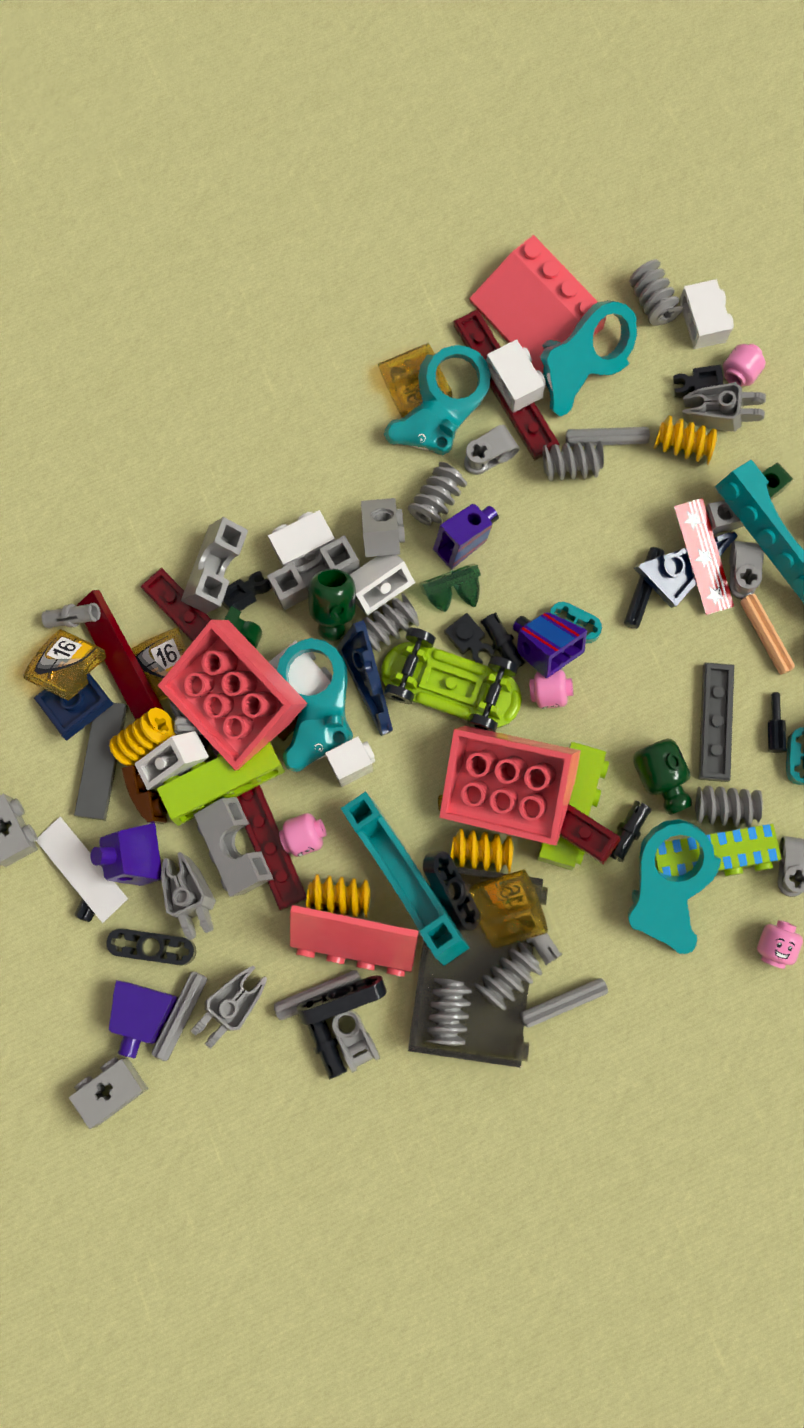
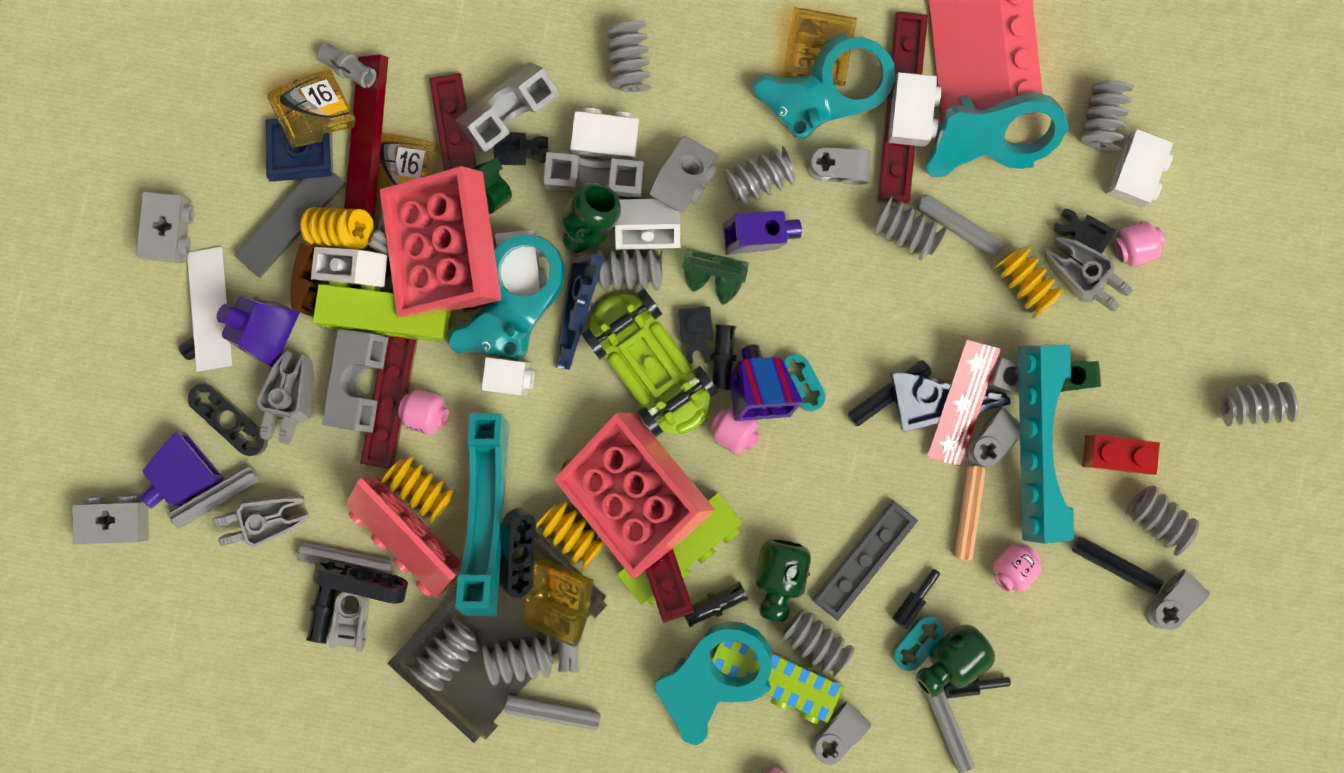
camera: 25 degrees right, 10 degrees up
(279, 476) = (626, 56): none -> light grey piece

